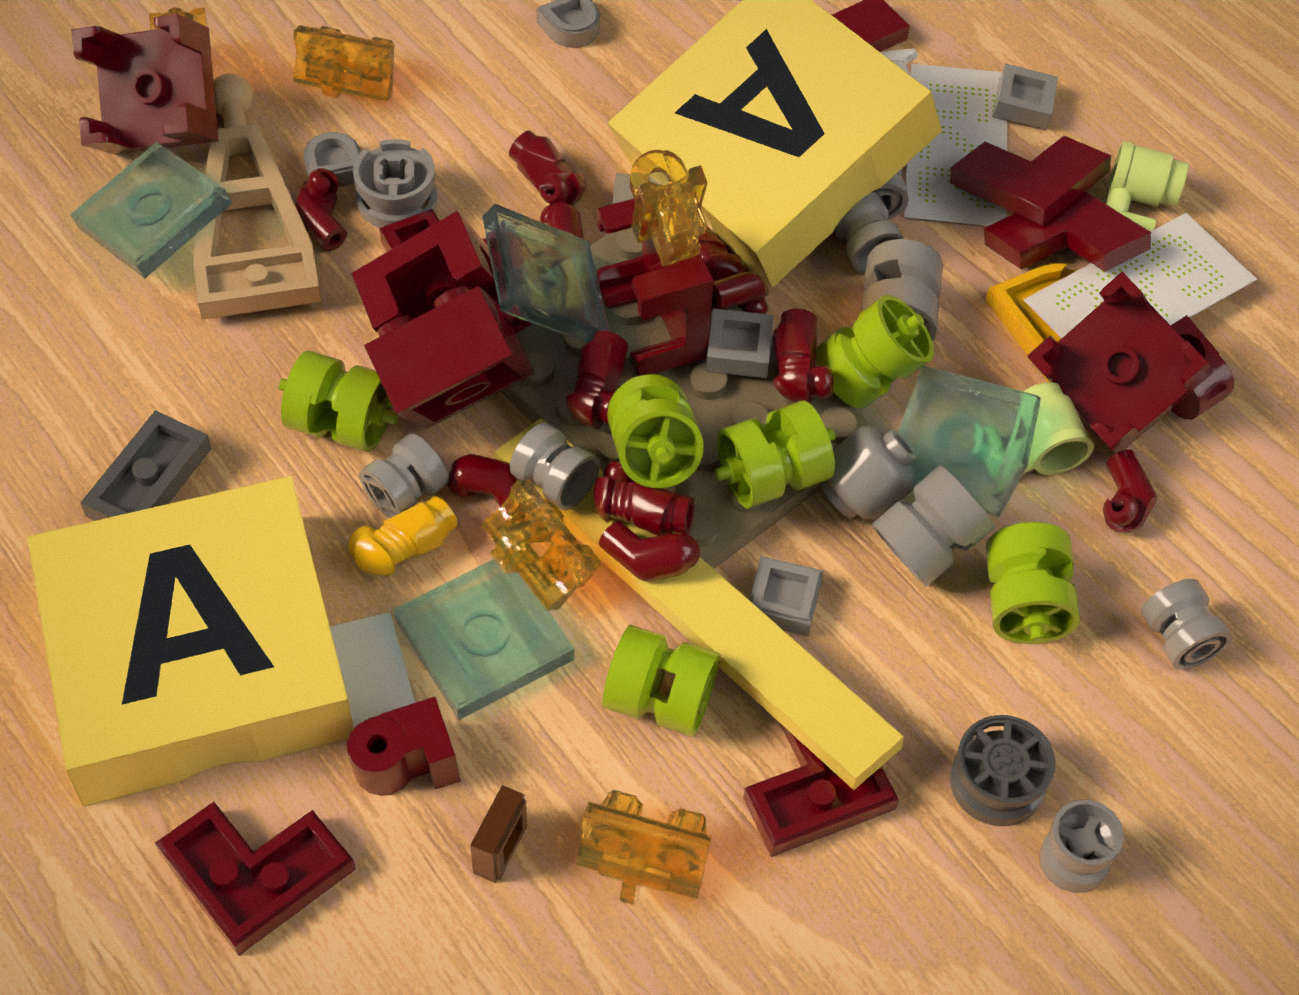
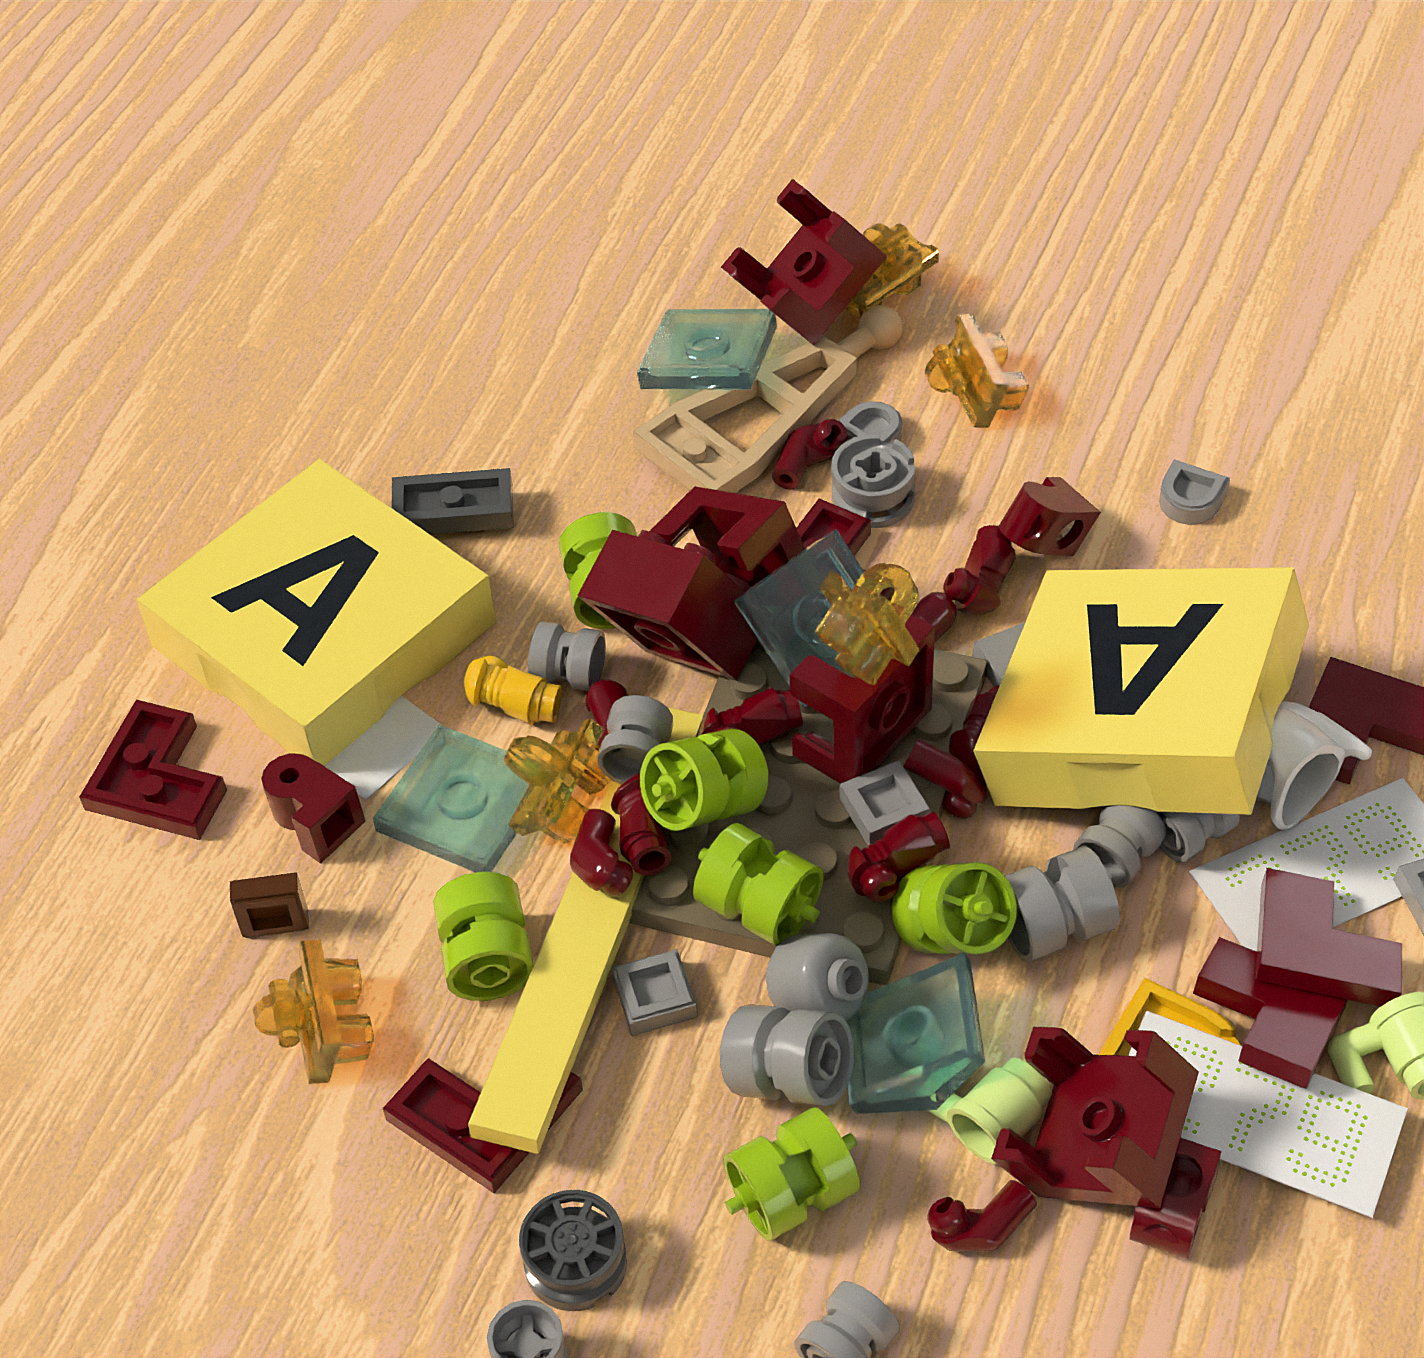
camera: 65 degrees right, 5 degrees down
(538, 100) = (1043, 512): none -> dark red leg

